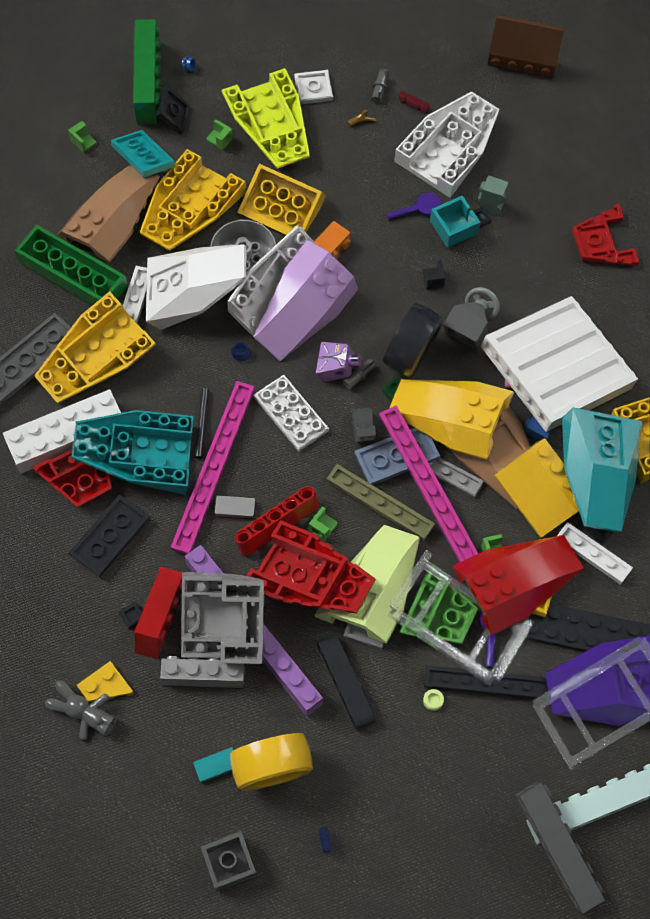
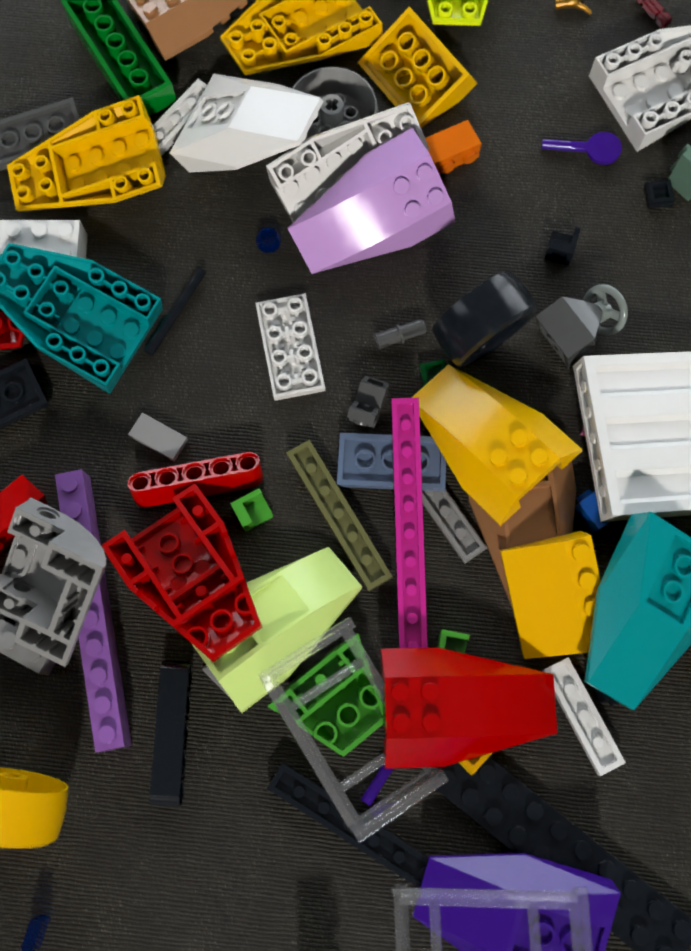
camera: 30 degrees right, 10 degrees up
(212, 468) = (156, 375): dark pink plate -> none
(336, 361) = (376, 304): medium lavender torso -> none
(433, 700) = (271, 811): yellowish green tile -> none
(452, 223) = (621, 184): teal piece -> none

